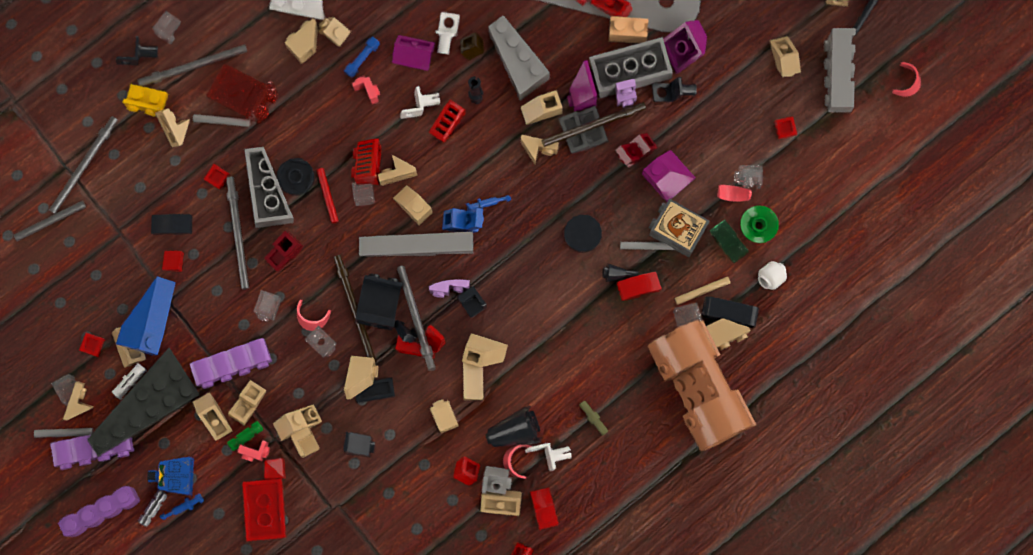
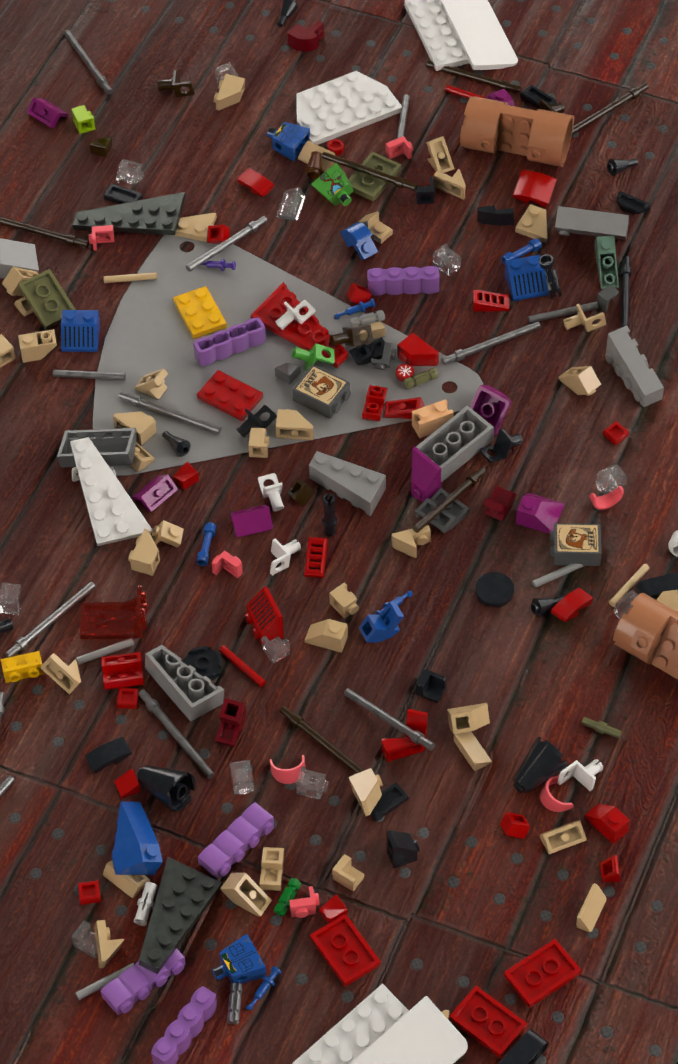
camera: 30 degrees left, 25 degrees down
(200, 282) = (168, 785): none -> black cone
(225, 148) = (122, 670): none -> red slope
(296, 421) = (327, 858): tan slope -> none
(378, 302) = (344, 725): black panel -> none
(402, 171) = (298, 614): tan slope -> none
(406, 334) = (384, 734): black tile -> none
(417, 244) = (351, 664): light grey slope -> none
(443, 288) = (396, 688): lavender slope -> none
(444, 416) = (466, 785): tan slope -> none
(445, 178) = (343, 601): none -> tan brick
(496, 480) = (542, 813): light grey brick -> none
(542, 108) = (396, 507): tan slope -> none
(625, 93) = (461, 461): lavender slope -> none
(728, 241) = (622, 536): clear green slope -> none
(766, 218) = (642, 505): green dish -> none

